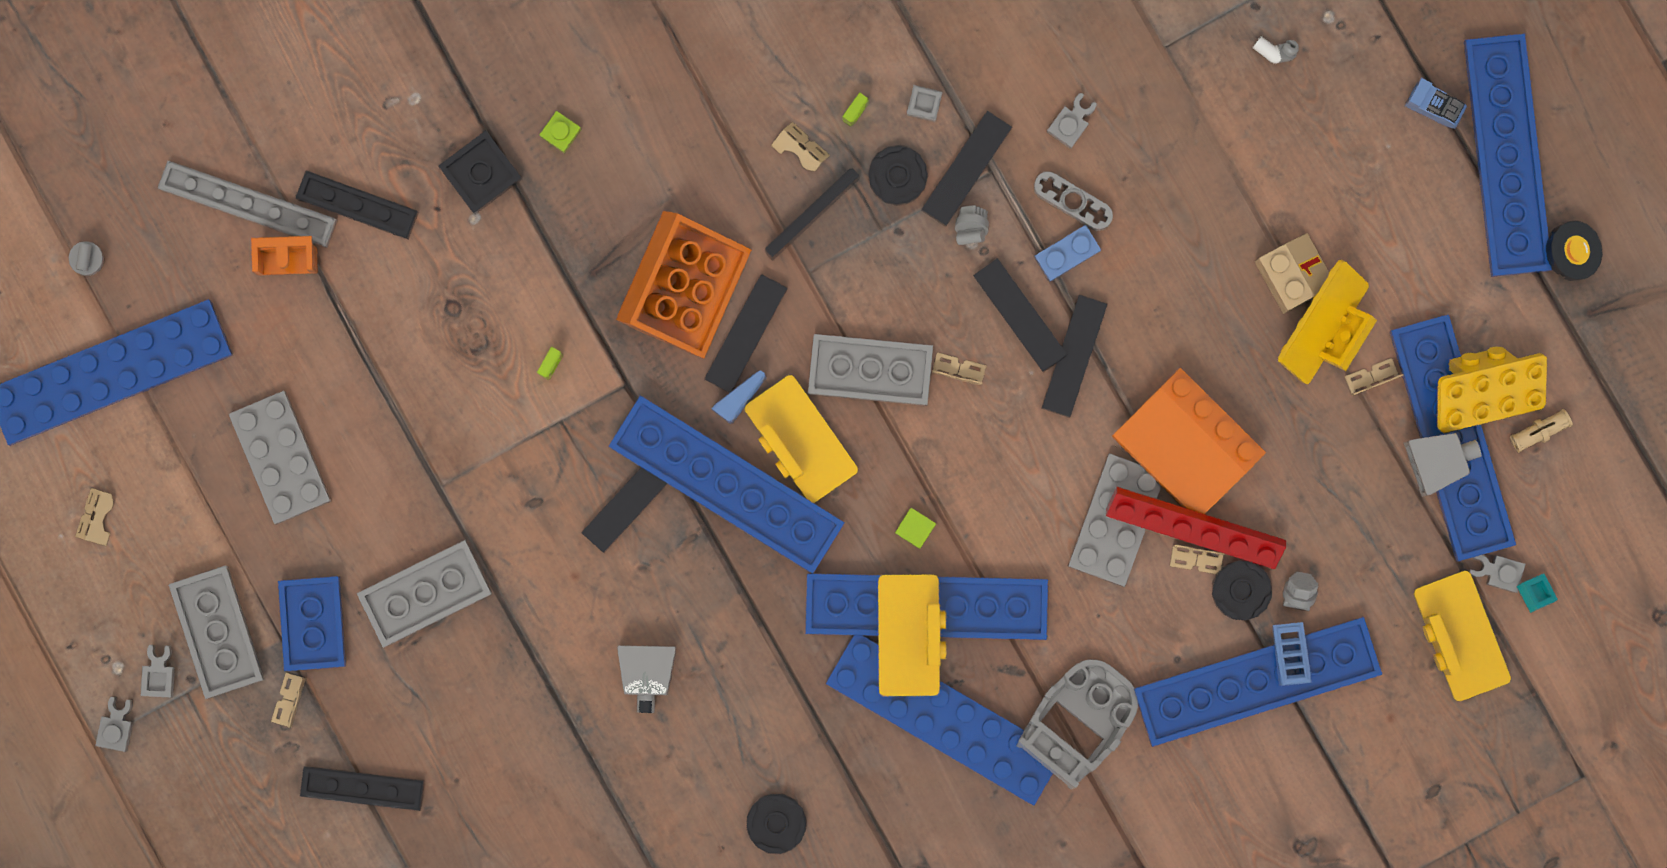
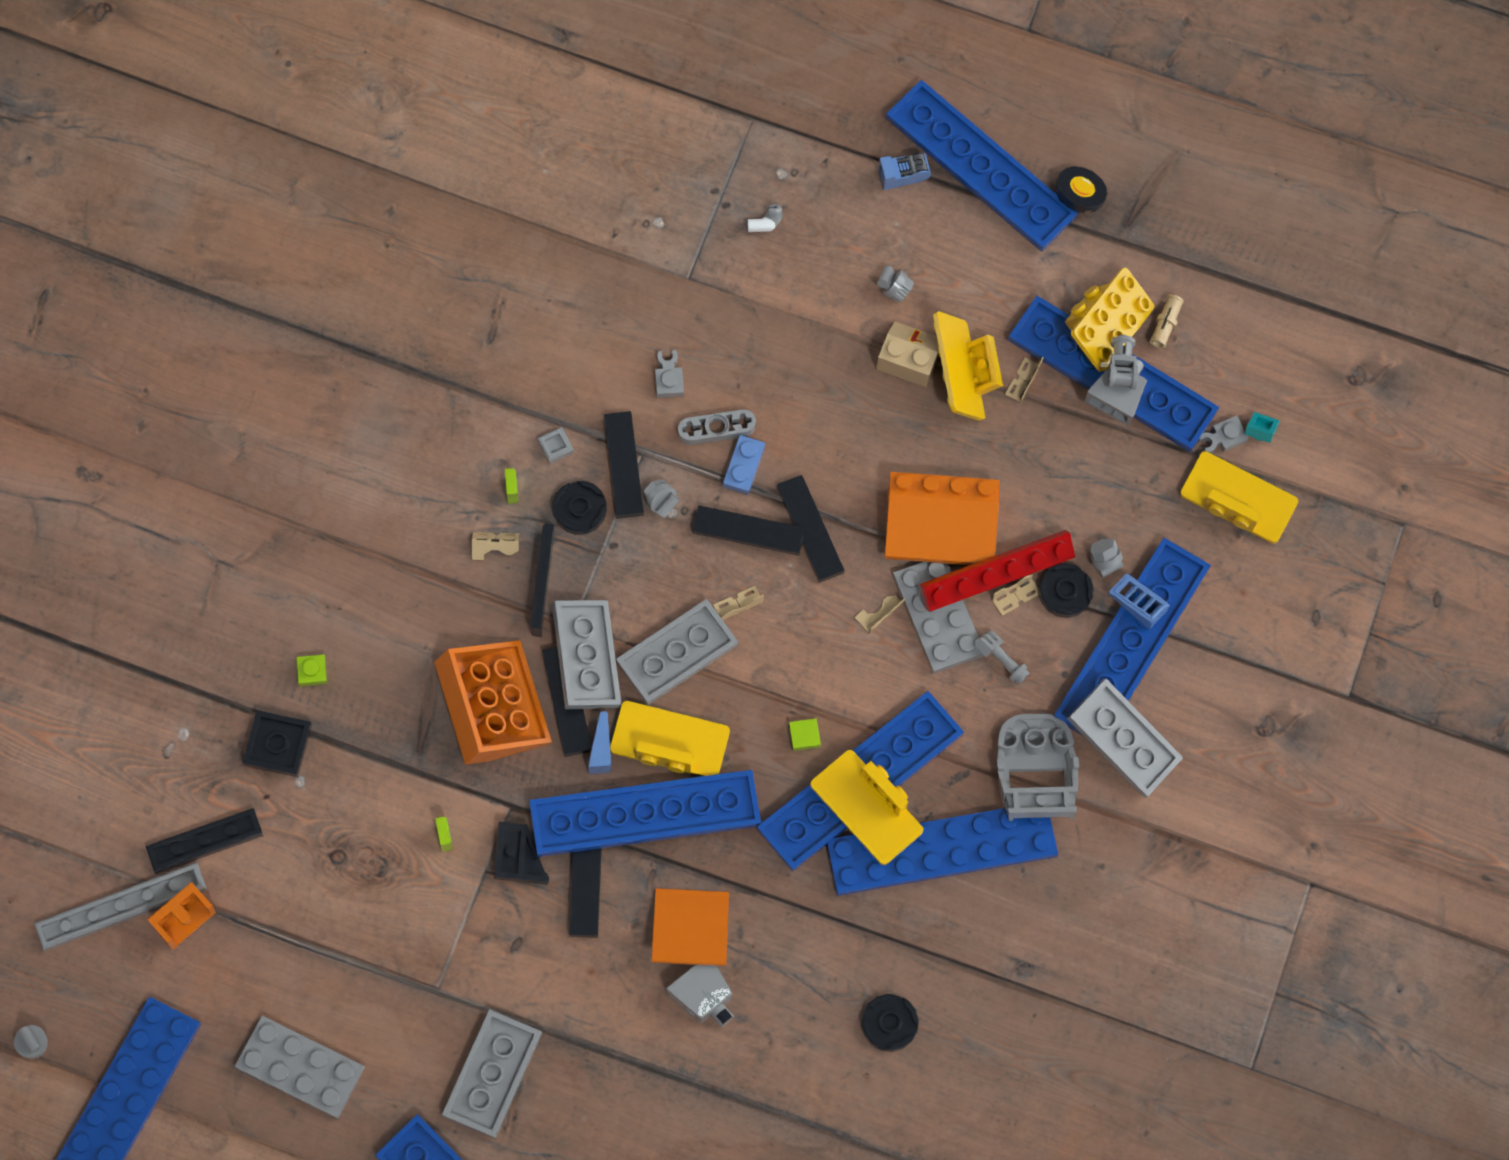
camera: 45 degrees left, 15 degrees down
(594, 430) = (517, 855): none -> black wing
(681, 610) = (690, 927): none -> orange piece
(792, 309) = (586, 654): none -> light grey plate
(1056, 478) = (872, 620): none -> tan piece
(1133, 583) = (990, 644): none -> light grey hinge
(1173, 759) = (1124, 738): none -> light grey plate
(1335, 201) = (895, 284): none -> light grey piece
(1456, 446) = (1123, 365): none -> light grey connector

